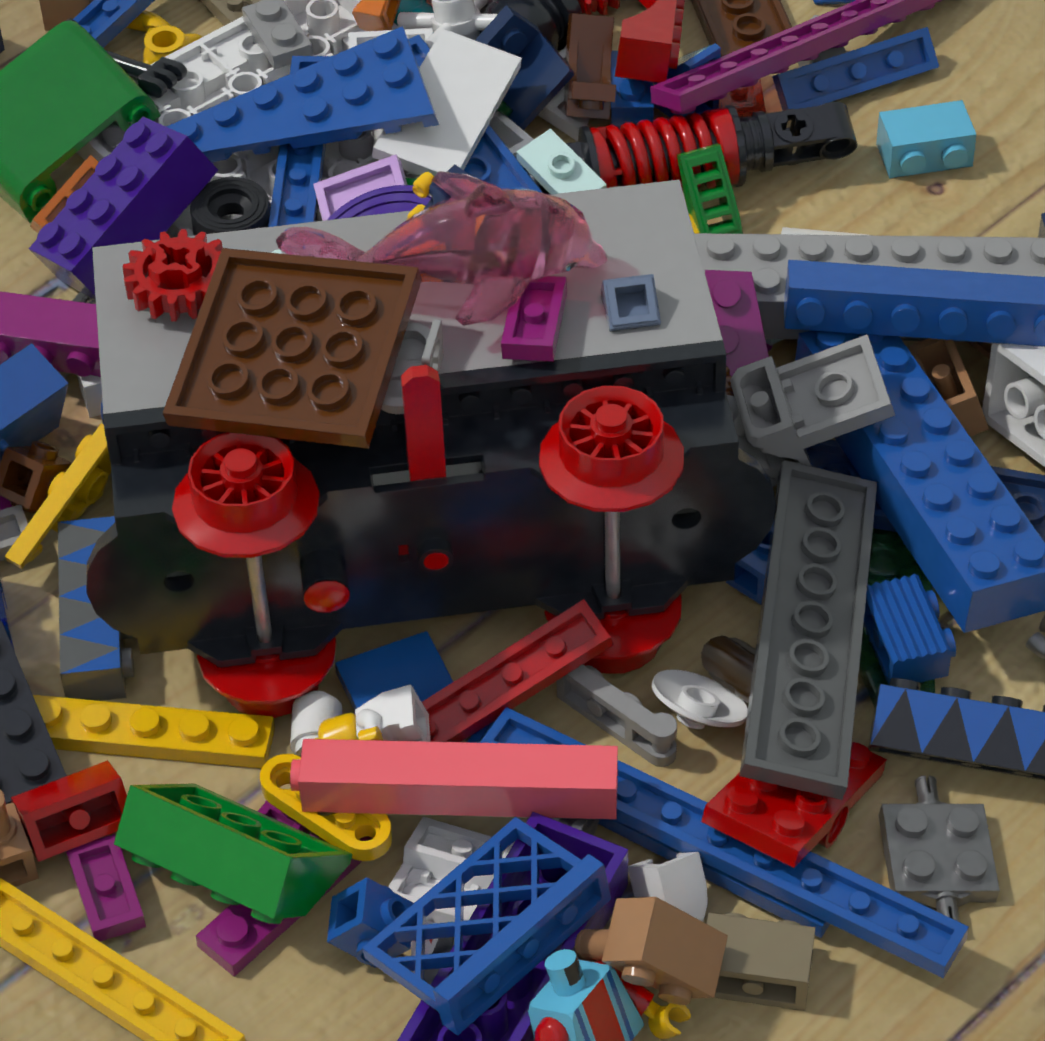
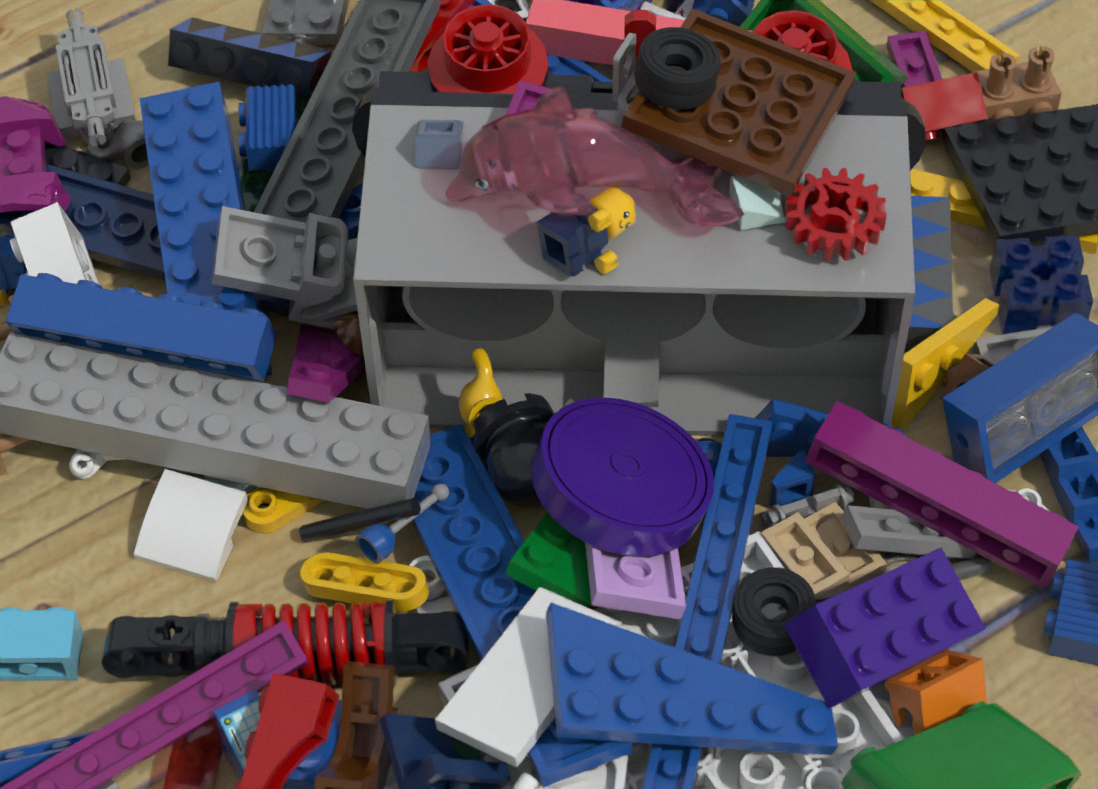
camera: 170 degrees left, 5 degrees up
(372, 340) = (674, 87): none -> black tyre
(557, 165) = (426, 603): light aqua plate -> none
(723, 191) = (280, 580): green slope -> none

